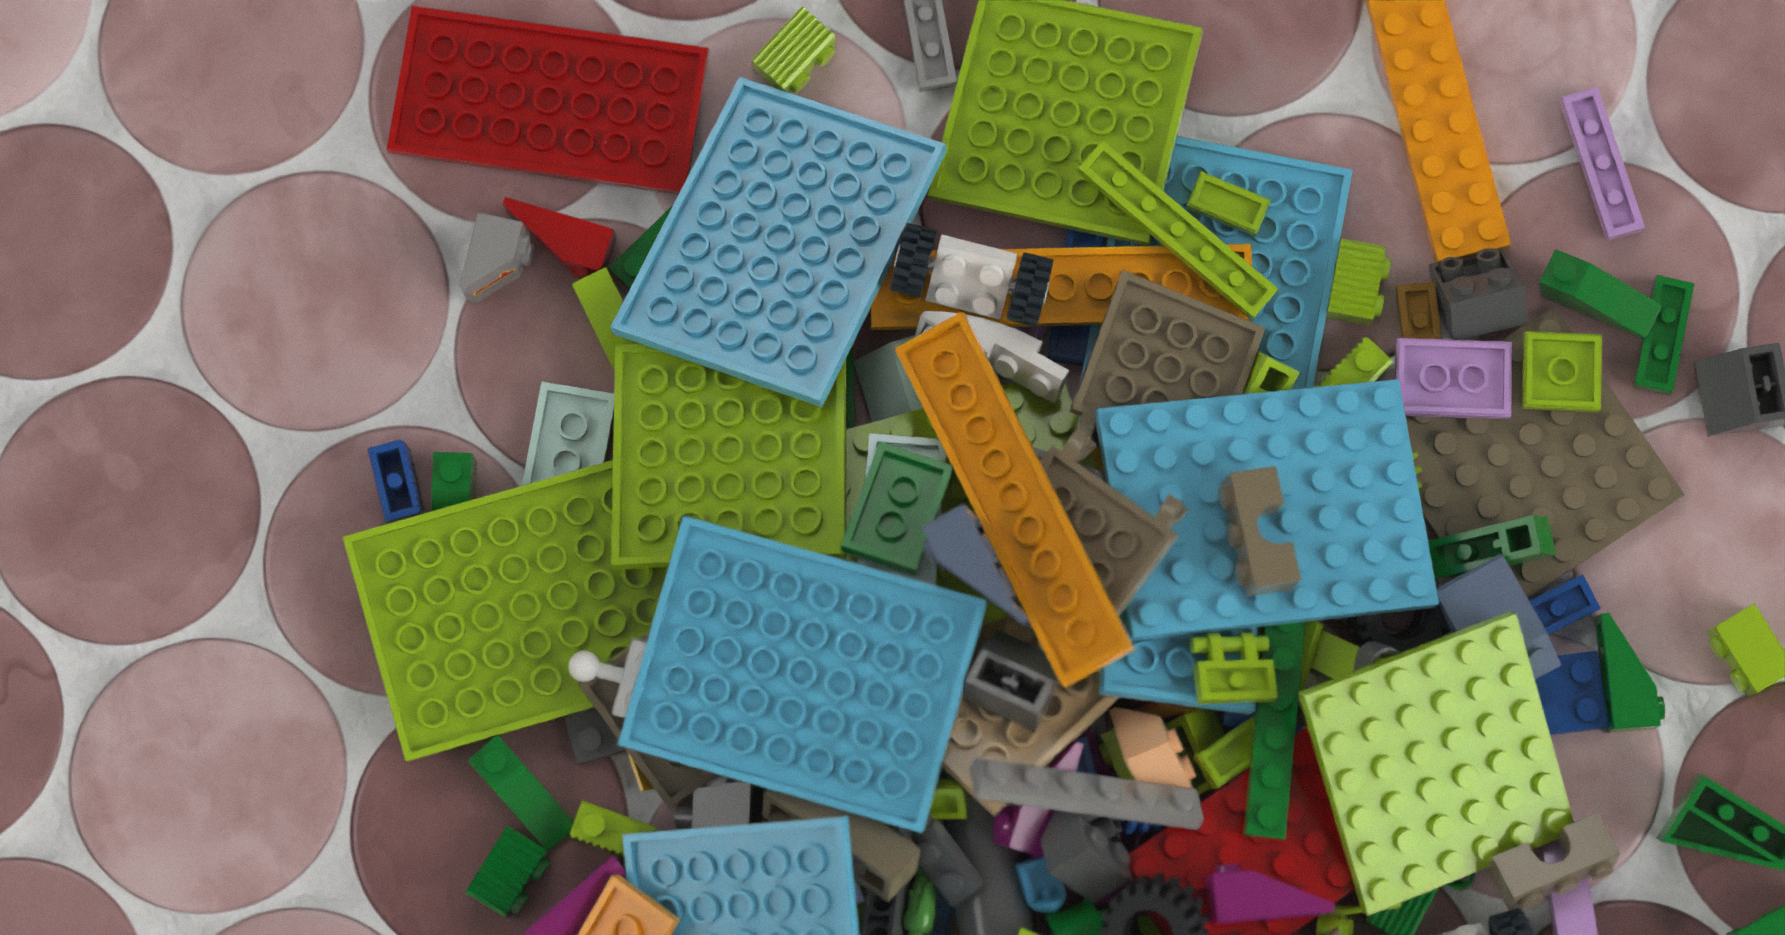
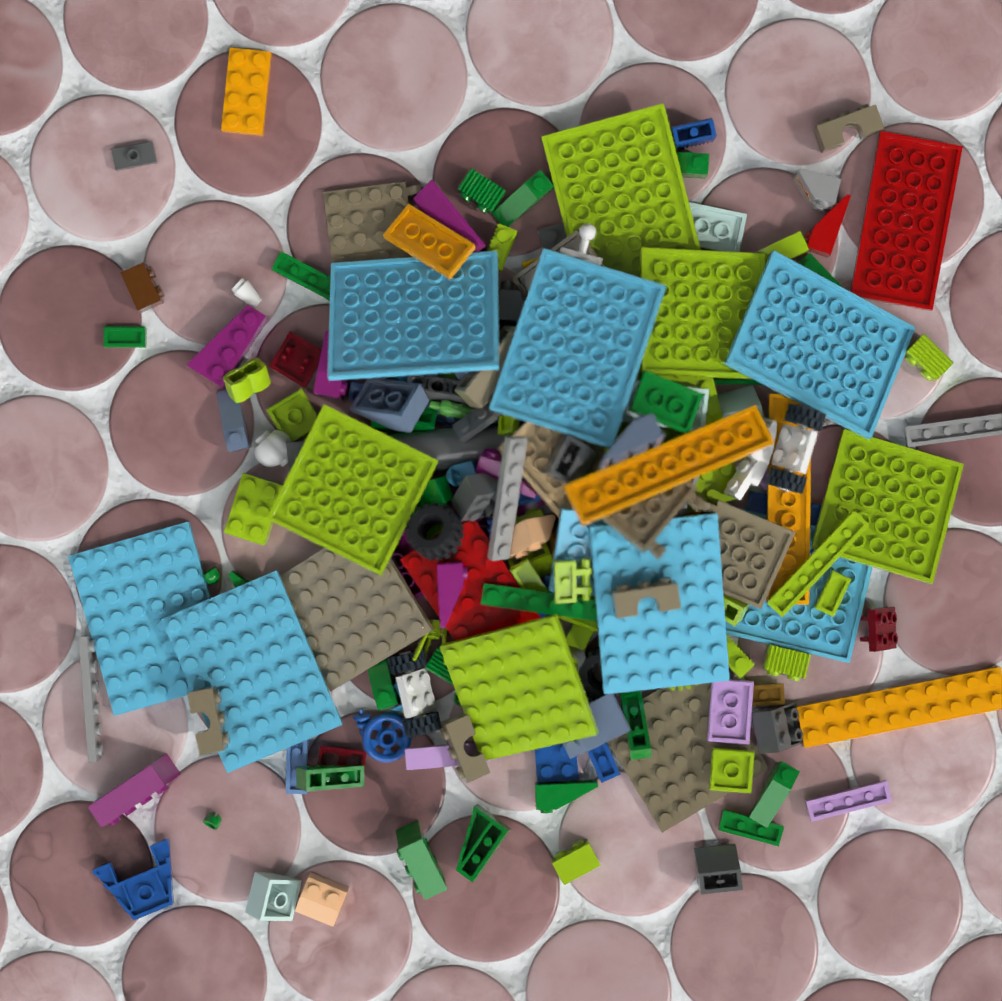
camera: 90 degrees right, 10 degrees up
(368, 177) = (864, 120): none -> dark tan arch
(1288, 115) = (881, 629): none -> dark red plate

